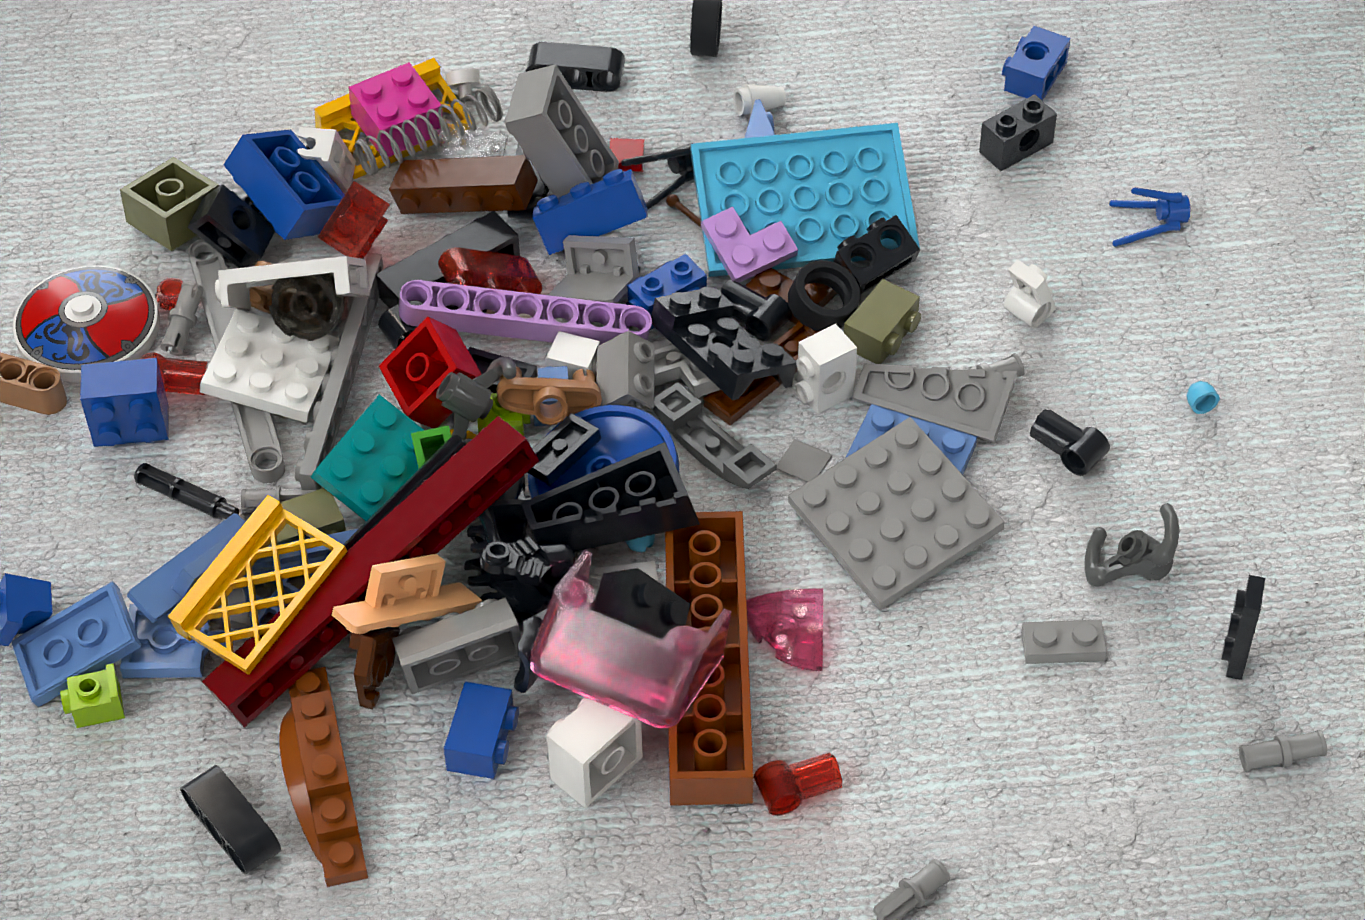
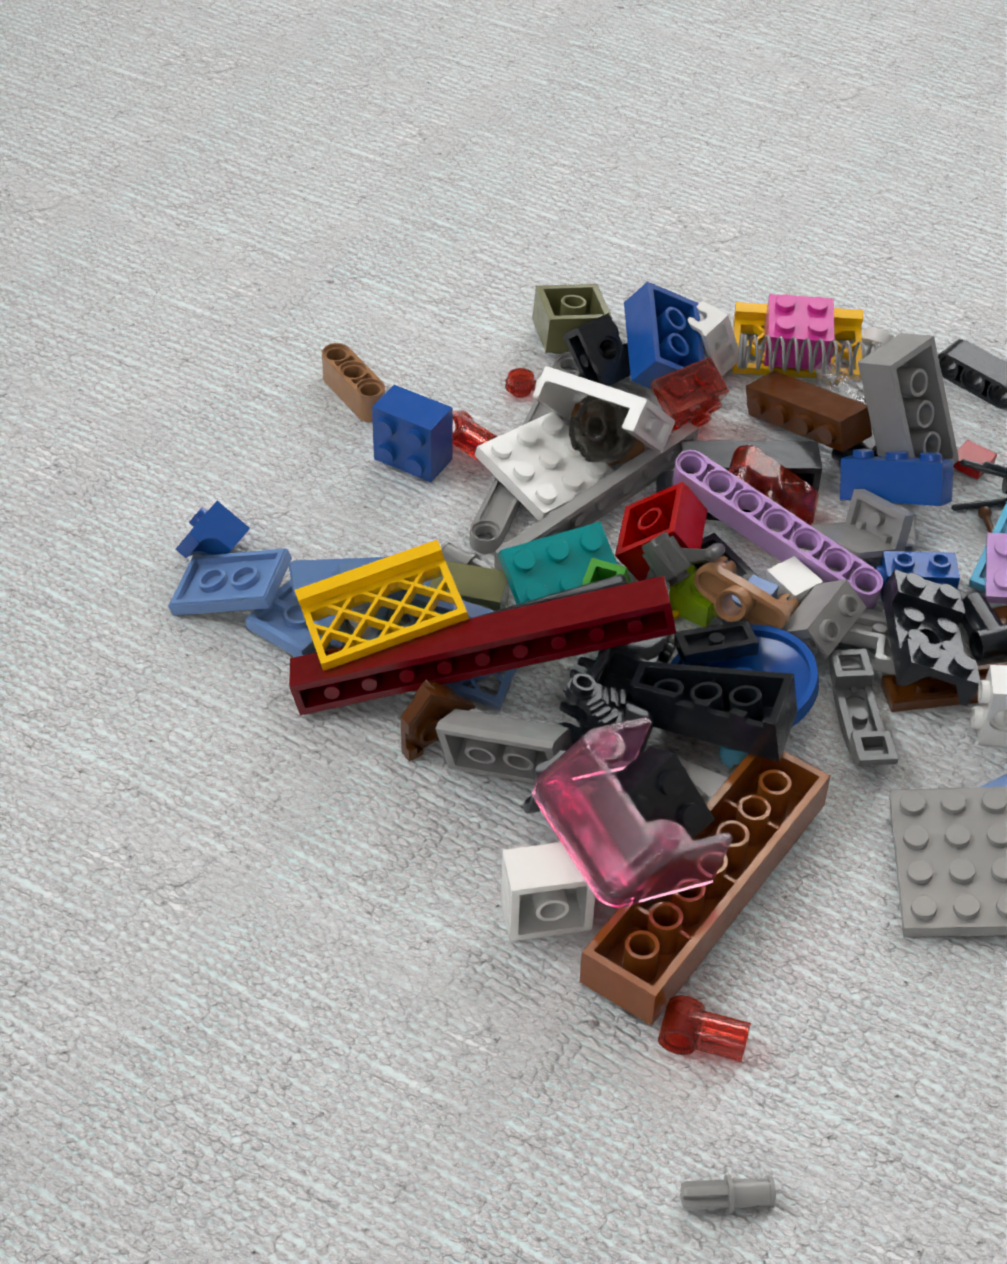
camera: 35 degrees right, 5 degrees down
(86, 319) = (447, 367): dish -> none
(93, 697) = (211, 628): lime brick -> none
(182, 318) = (509, 401): light grey pin -> none
(183, 491) = (403, 516): black piece -> none
(230, 819) = (226, 774): black beam -> none
(319, 779) = (313, 782): dark orange piece -> none
(405, 594) = (489, 677): light nougat bracket -> none
(480, 730) = (471, 824): blue brick -> none
(791, 625) = (808, 900): clear pink brick -> none
(803, 461) = (933, 773): light grey sticker -> none

